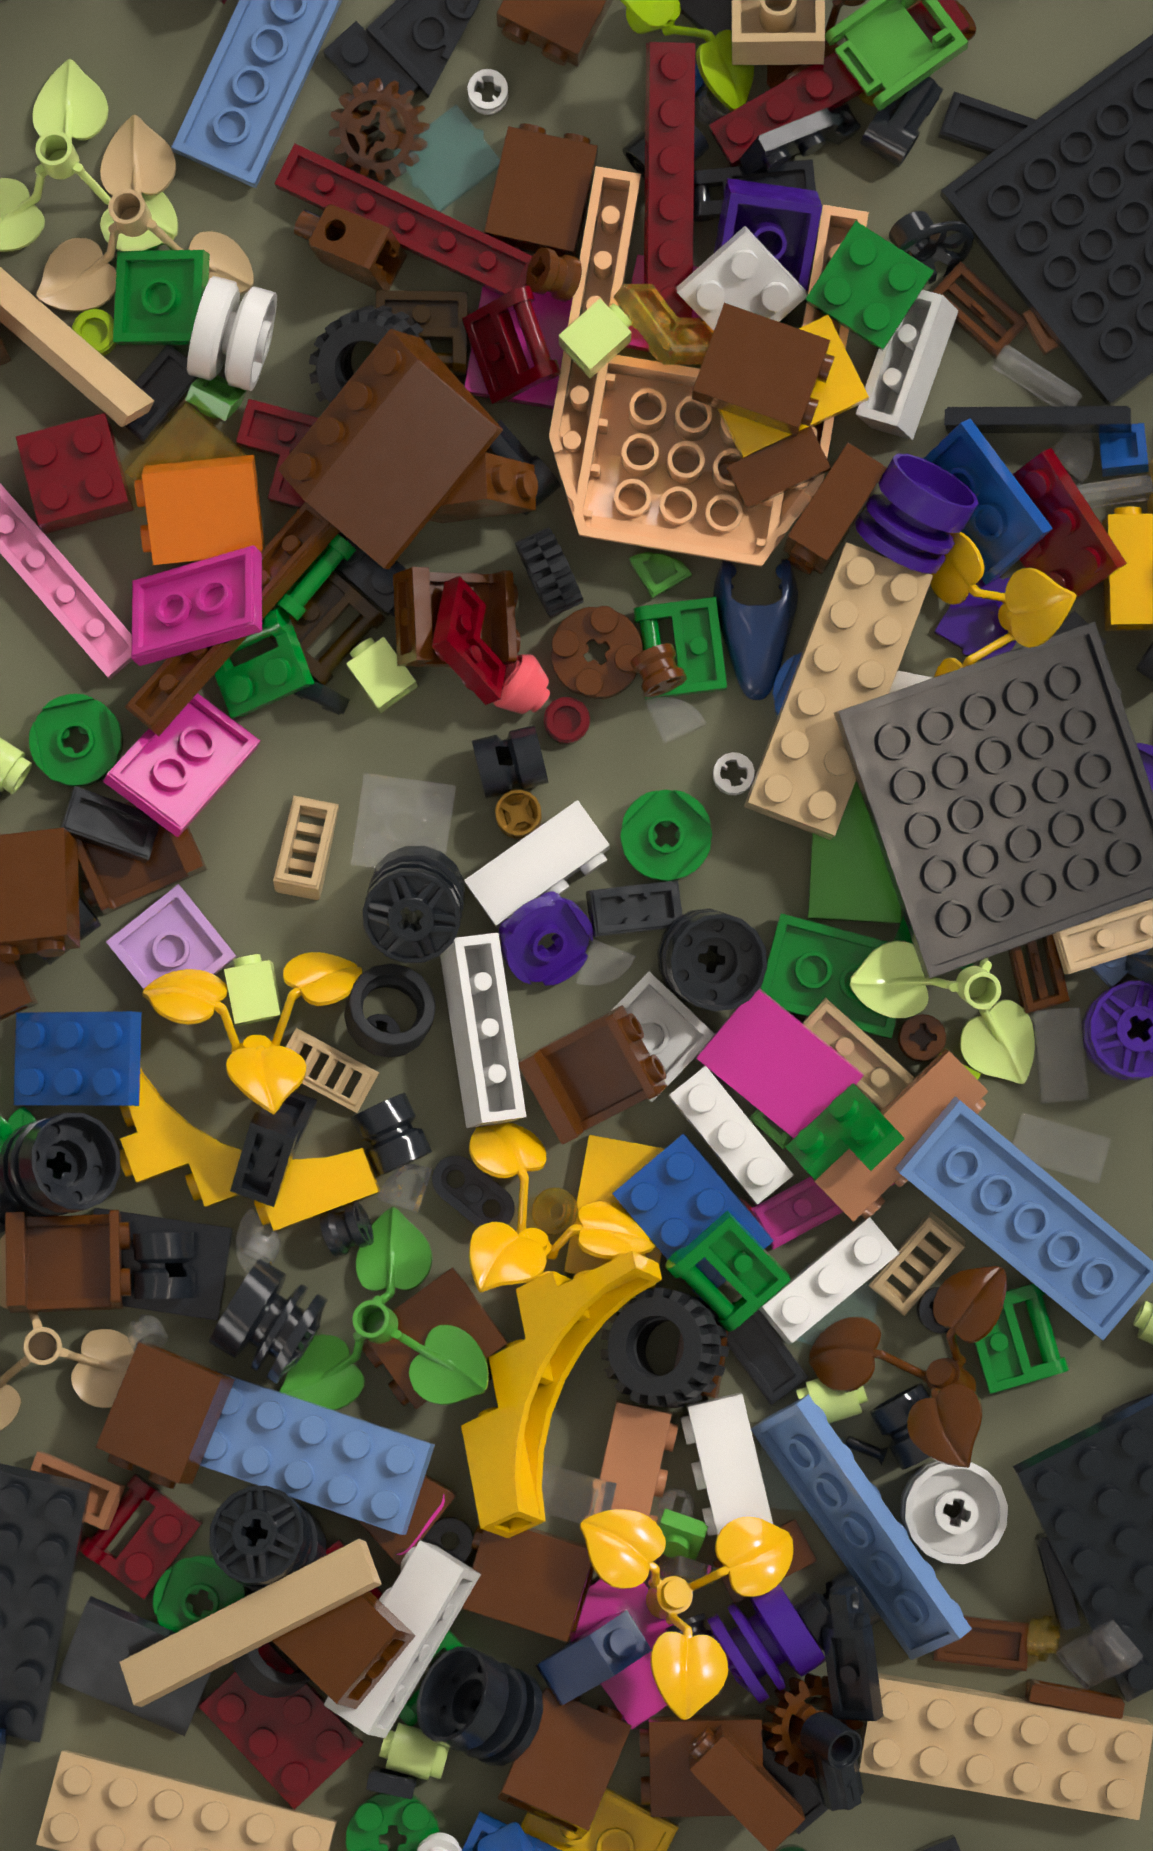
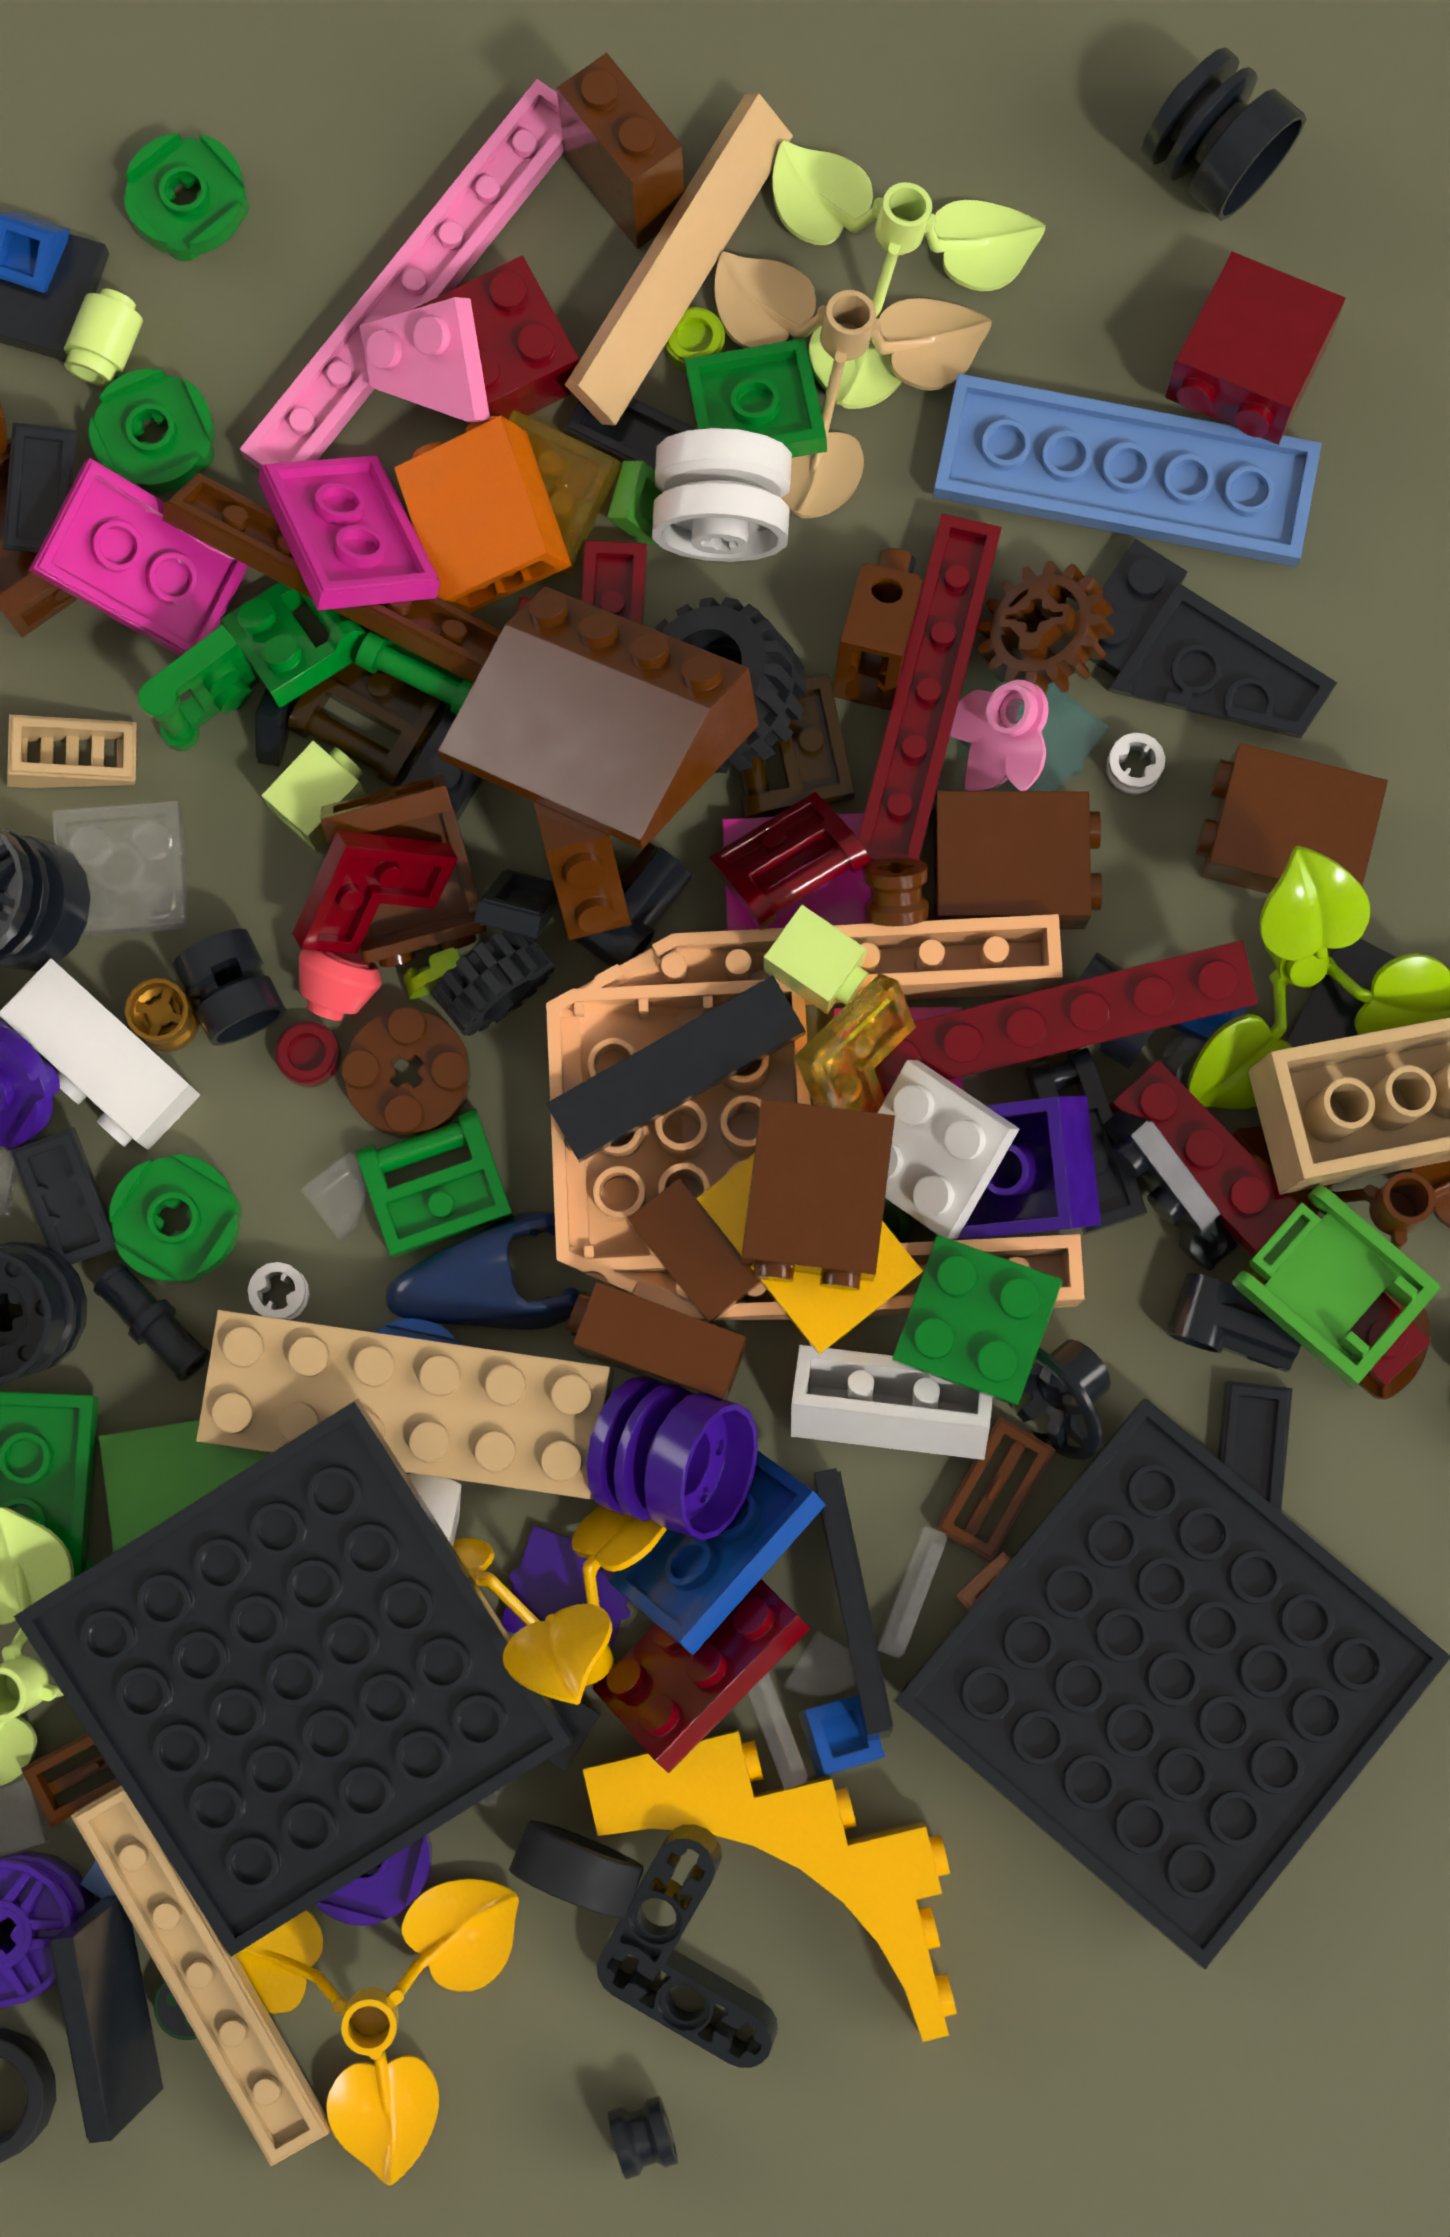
camera: 80 degrees right, 5 degrees down
(82, 519) = (429, 358): none -> bright pink wing
(285, 727) = (216, 679): none -> green plate
(454, 182) = (999, 743): none -> bright pink plate
(498, 542) = (518, 903): none -> black tile
(530, 617) = (422, 981): none -> lime tile
(648, 452) = (676, 1068): none -> black tile
(658, 670) = (387, 1153): reddish brown wheel -> none
(659, 572) = (530, 1133): bright green tile -> none
(736, 865) = (151, 1321): none -> black pin

